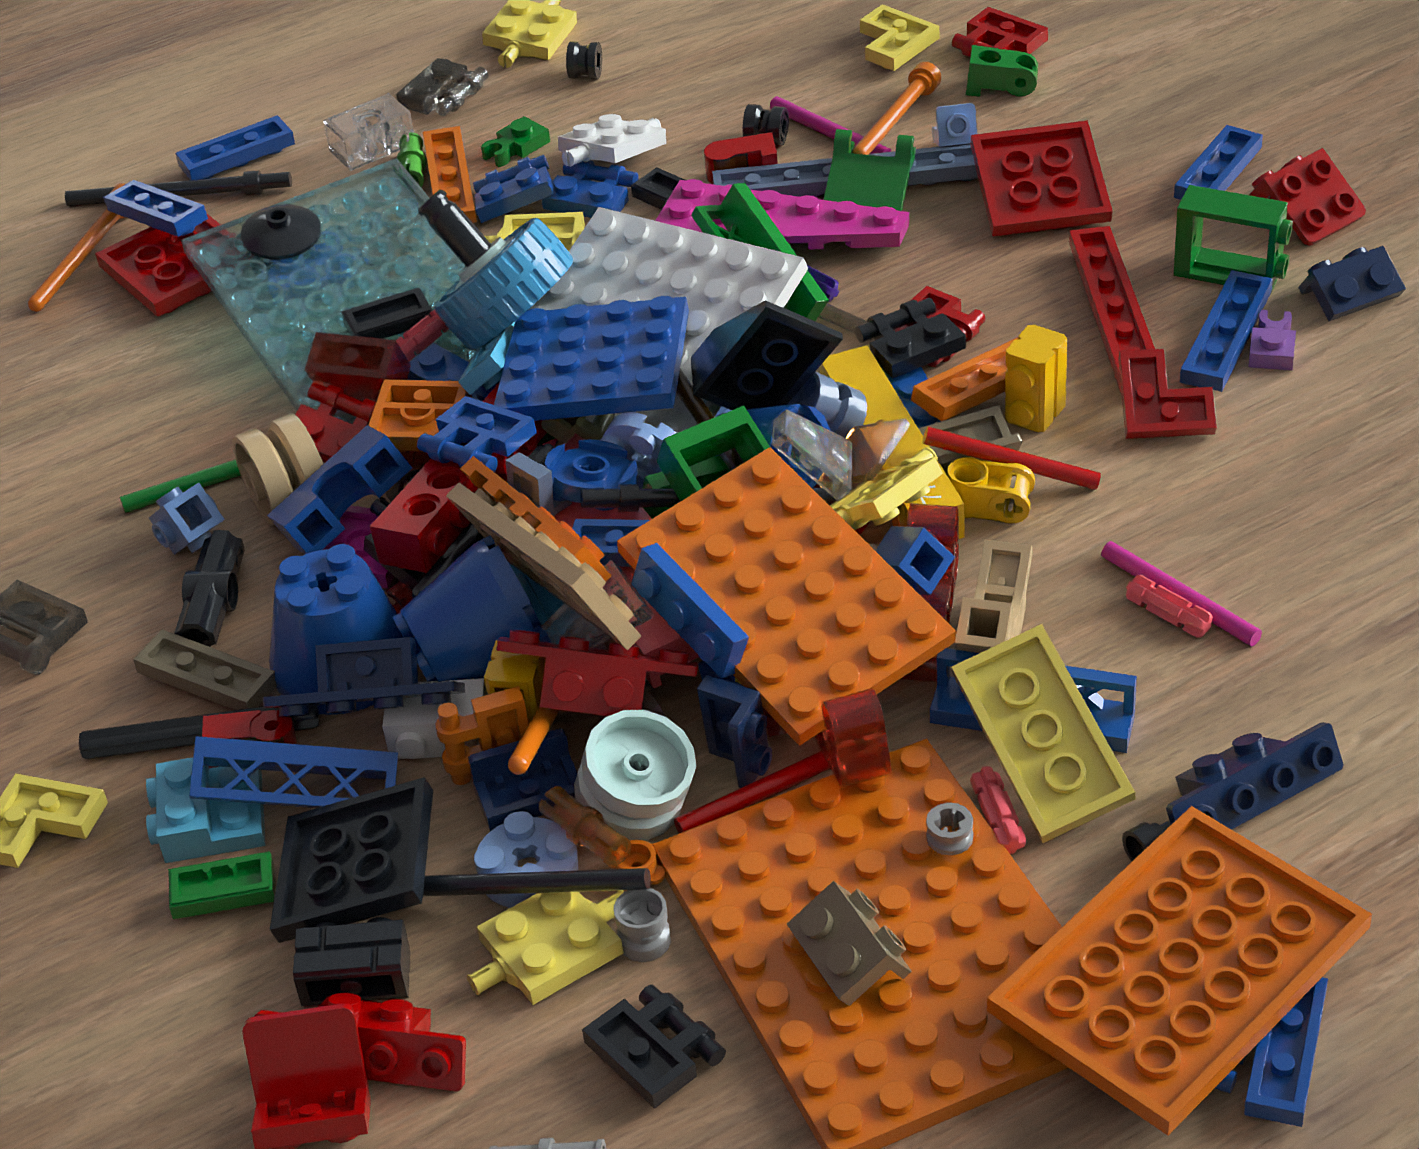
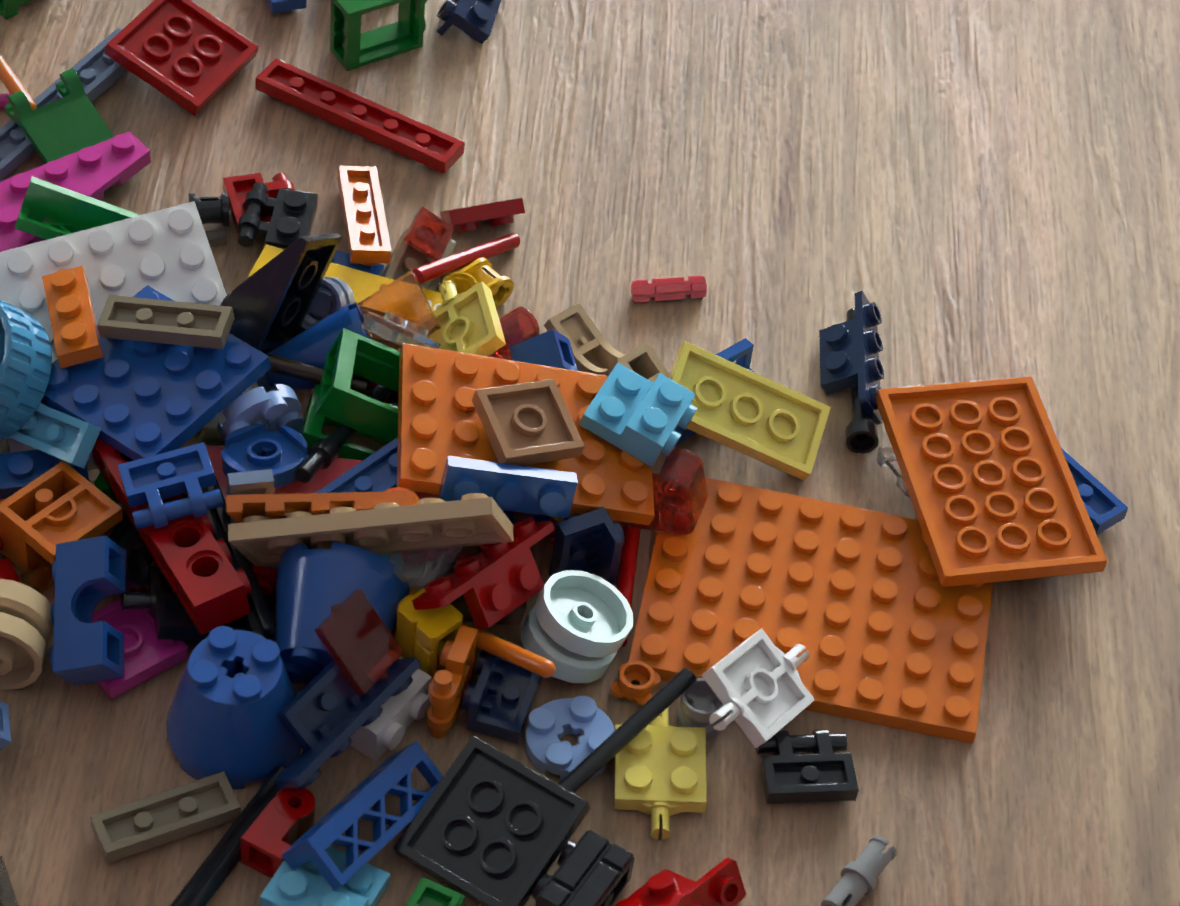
camera: 65 degrees left, 5 degrees up
(211, 588) = (70, 762): black piece -> none
(429, 636) = (359, 642): none -> clear red piece
(585, 826) = (594, 681): clear orange pin -> none
(599, 282) = (72, 317): none -> orange plate
(632, 319) = (166, 322): none -> dark tan plate
(685, 938) = (758, 687): none -> white plate
(766, 571) = (528, 423): none -> medium nougat plate
(847, 942) = (834, 613): dark tan bracket -> none
(876, 298) = (212, 209): none -> black bush
(888, 639) = (639, 413): none -> medium azure plate
(949, 815) = (779, 496): light grey bush -> none
(954, 124) = (67, 49): light blue bracket -> none
(998, 809) = (761, 477): coral axle -> none
(1003, 416) = (429, 234): none -> clear red plate
(1035, 378) = (404, 188): yellow brick -> none
(1110, 448) = (499, 213): none -> red plate
(1155, 410) = (482, 166): red plate -> none
(1221, 617) = (625, 277): dark pink bar -> none
(1226, 331) = (446, 87): blue plate -> none
(1272, 343) = (478, 81): medium lavender plate -> none

